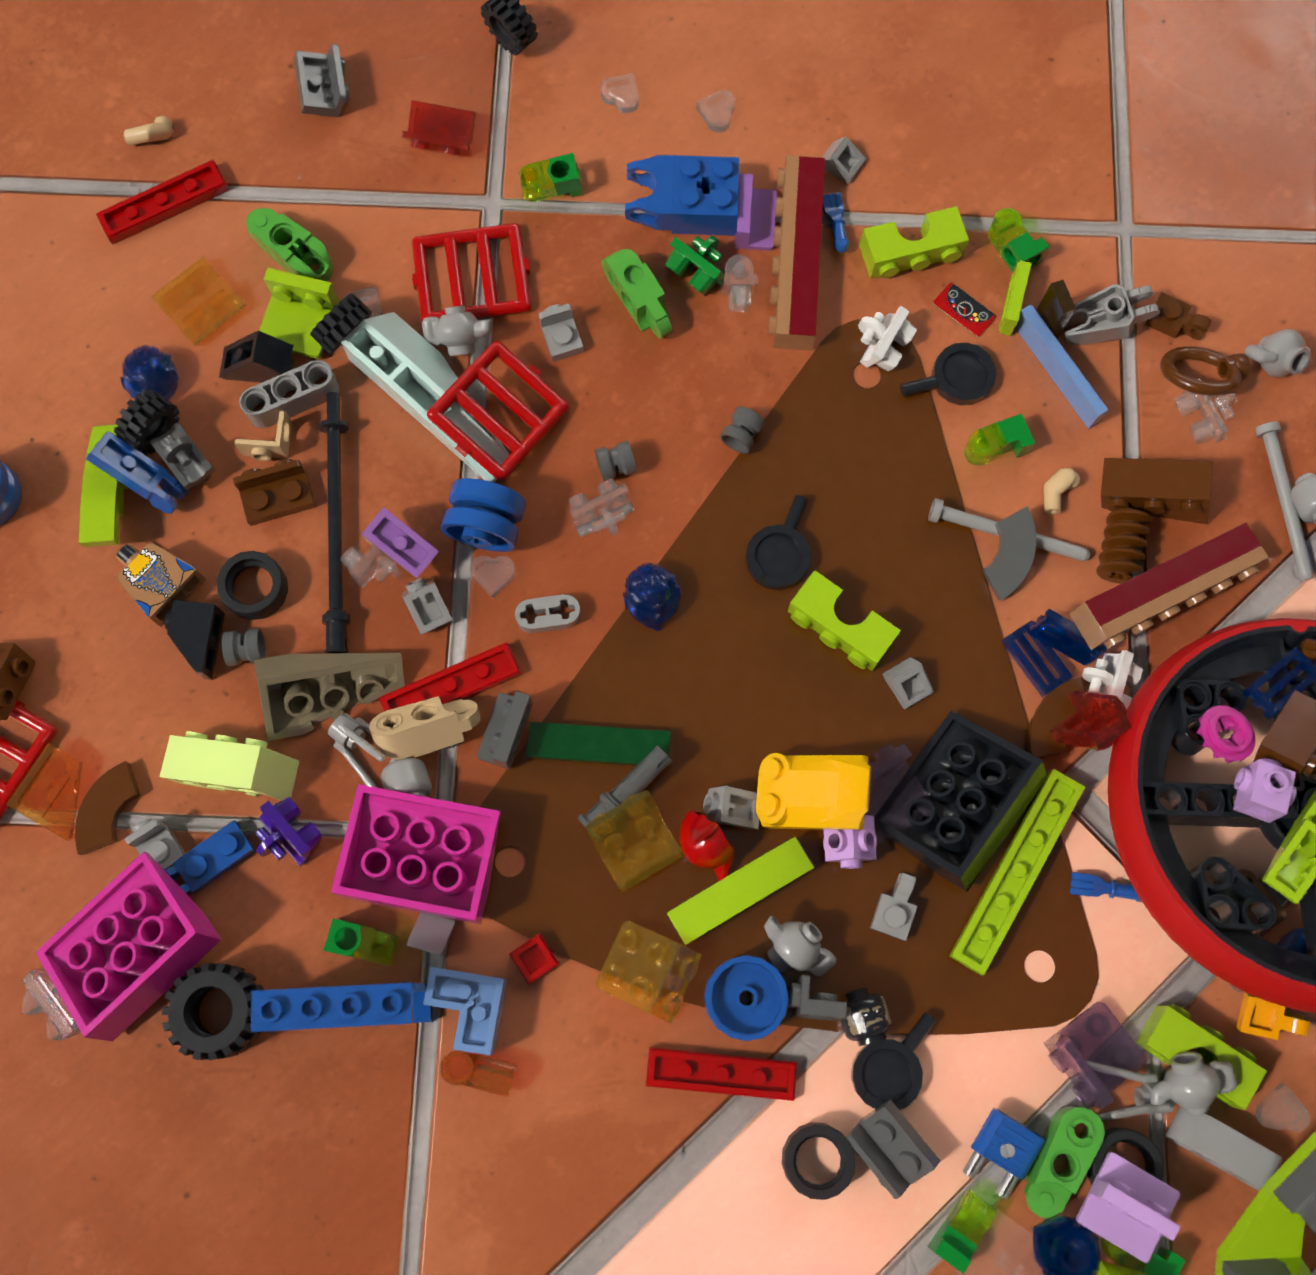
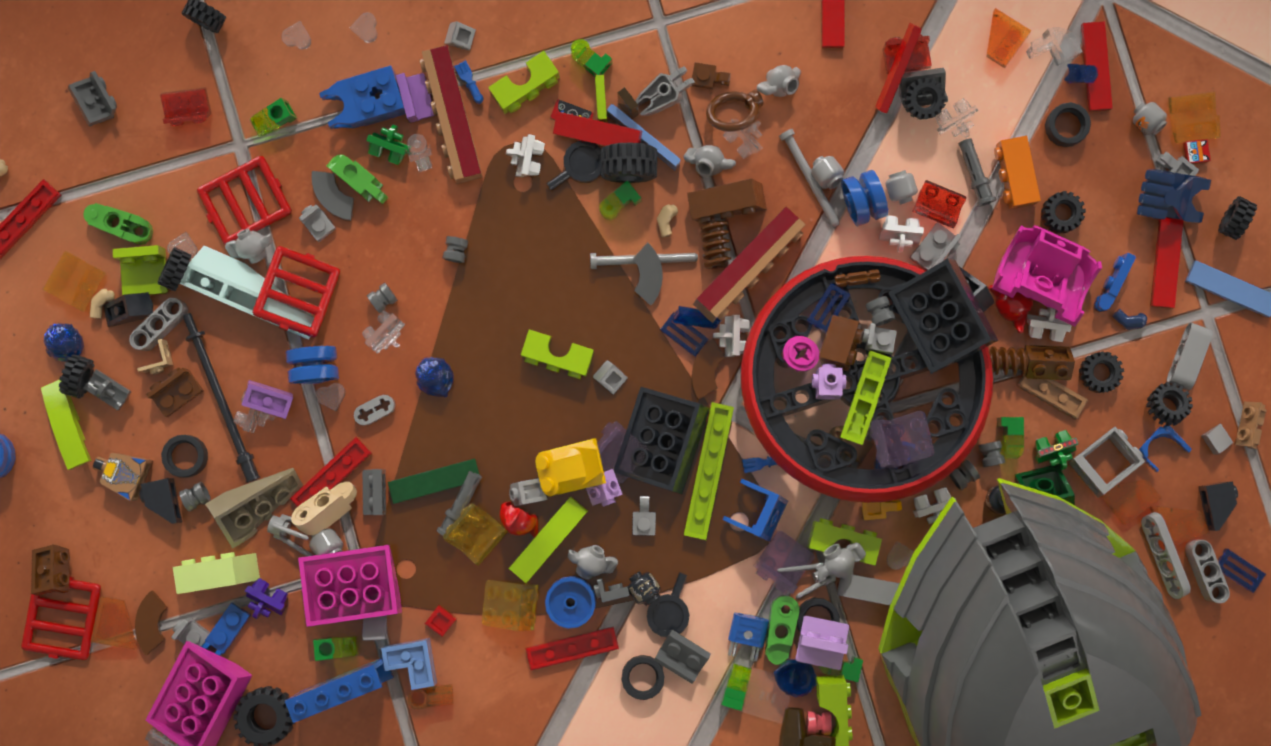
camera: 20 degrees left, 10 degrees up
(137, 472) = (83, 411): blue hinge -> none
(218, 339) = (98, 301): none -> tan arm
(425, 605) = (296, 431): light grey bracket -> none
(592, 306) = (330, 195): none -> dark grey tile
(779, 553) = (505, 322): black piece -> none
(999, 336) = (594, 130): none -> red tile
(1036, 385) = (629, 162): none -> black tyre
(1095, 723) = (726, 369): clear red bracket -> none
(1097, 973) = (769, 516): none -> blue hose
(1147, 425) = (708, 160): none -> light grey piece

